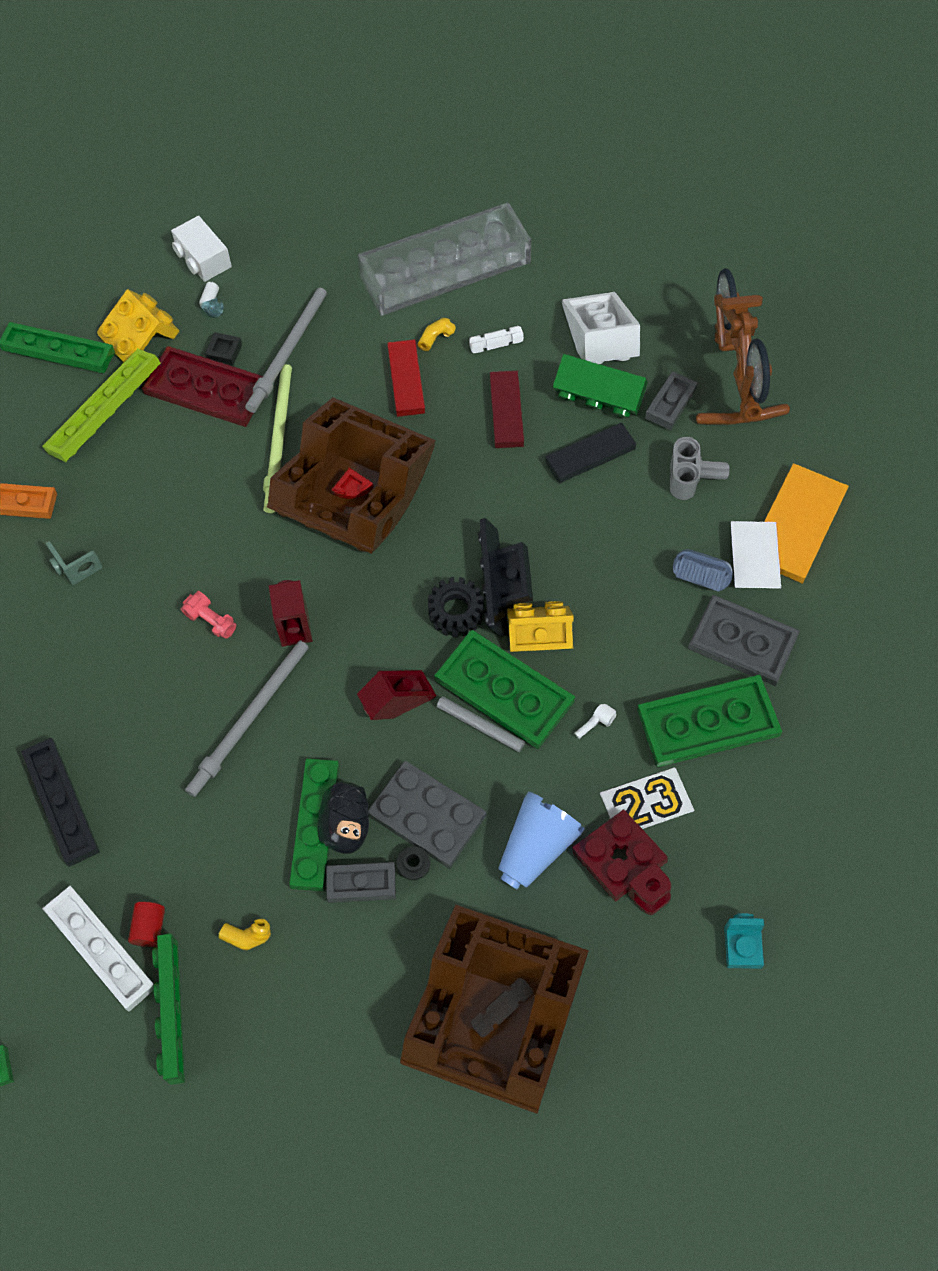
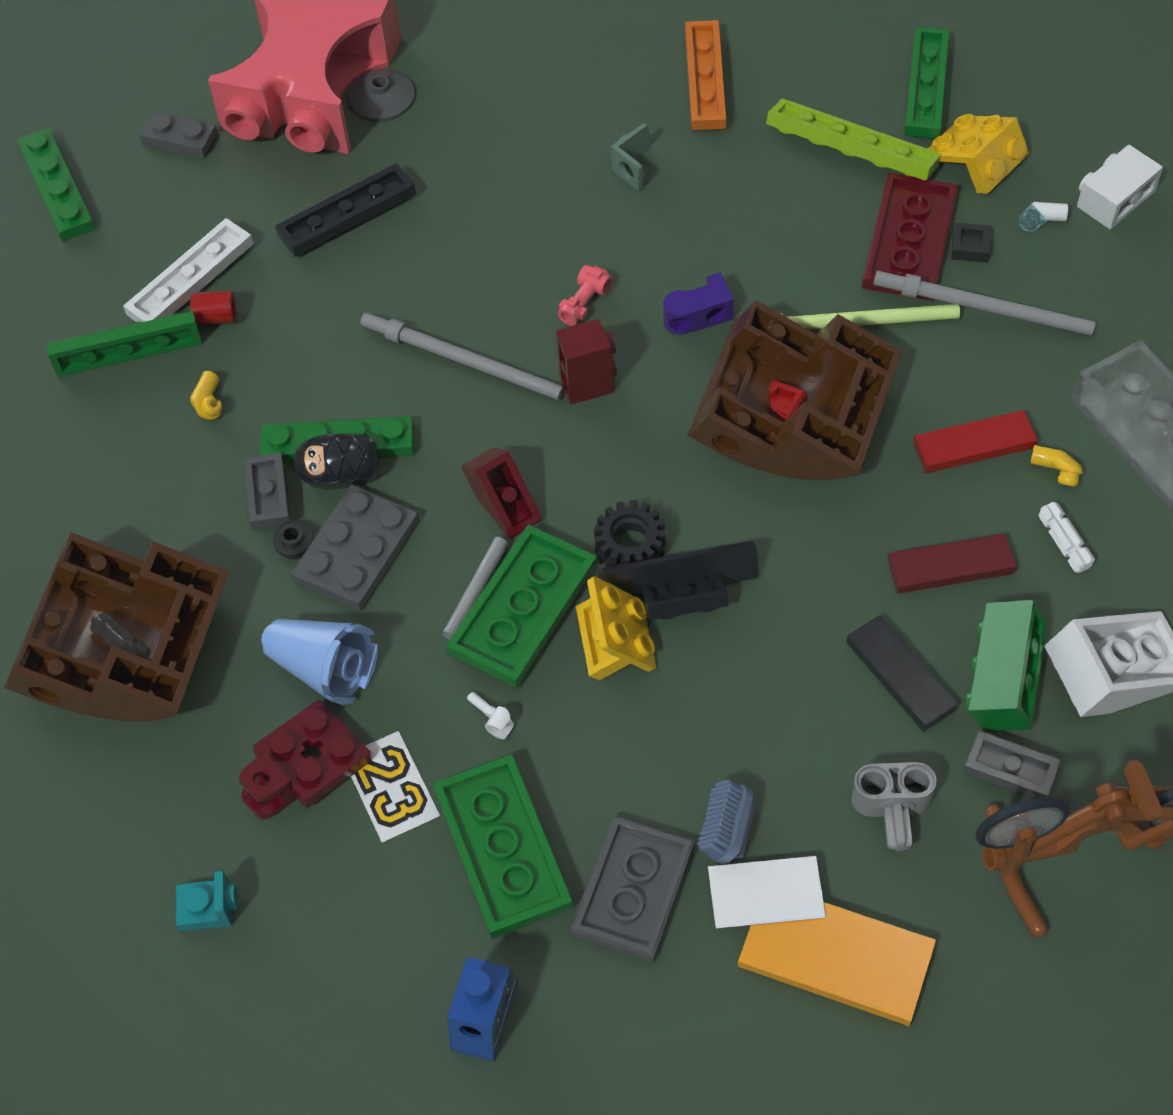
camera: 85 degrees right, 5 degrees down
(245, 538) = (698, 307): none -> dark purple leg
(838, 738) = (481, 1003): none -> blue torso

